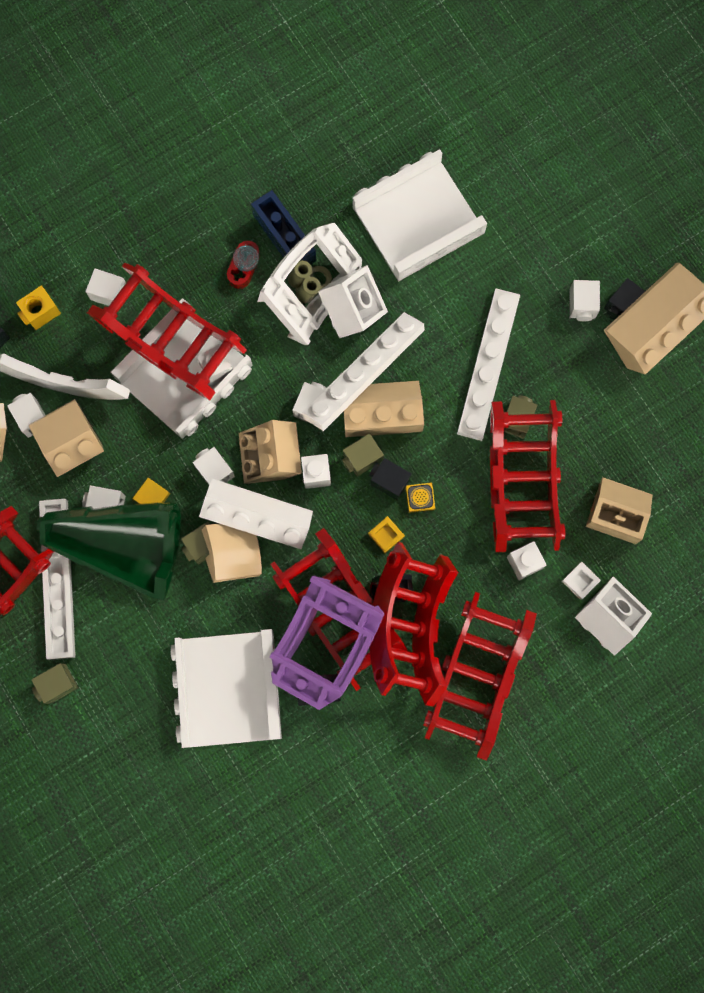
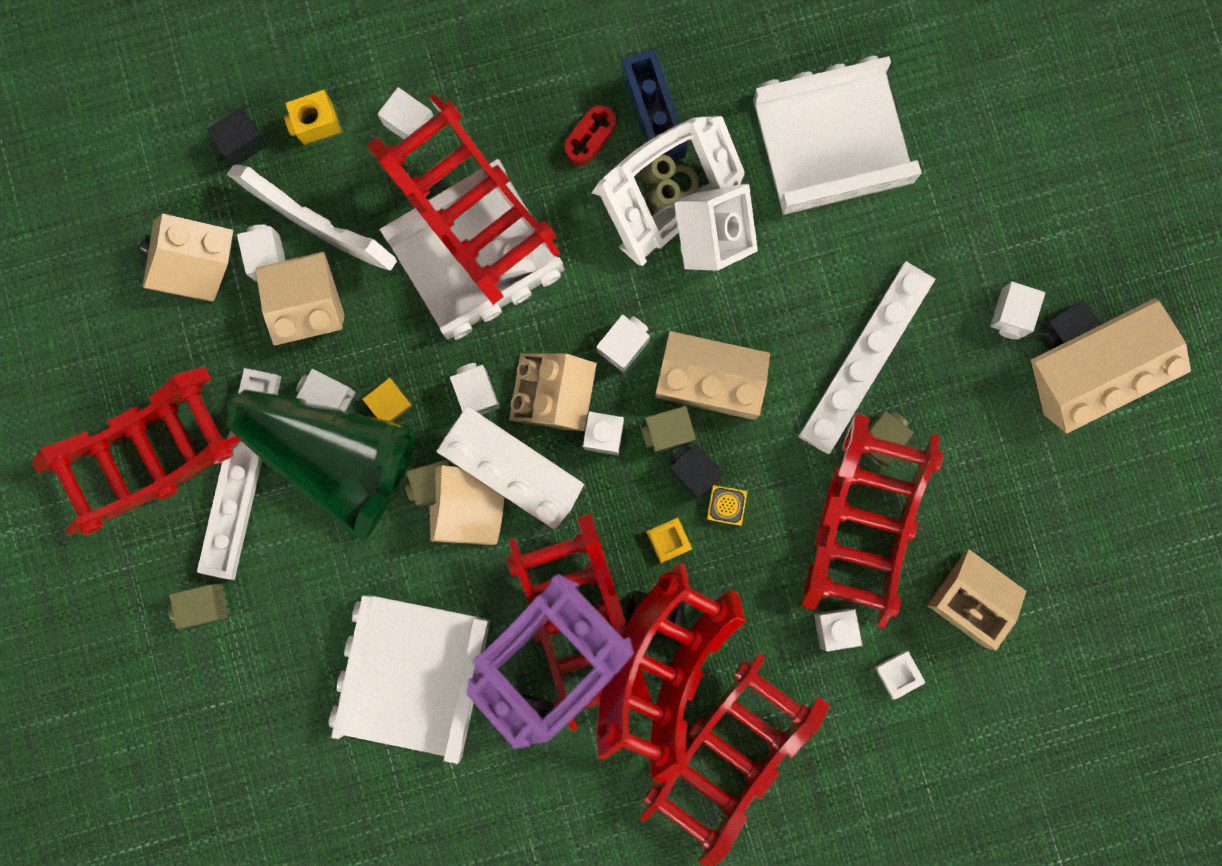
camera: 20 degrees right, 5 degrees up
(245, 258) = (595, 129): clear light blue plate -> none
(363, 371) = (702, 322): white plate -> none
(613, 616) = (928, 733): white slope -> none

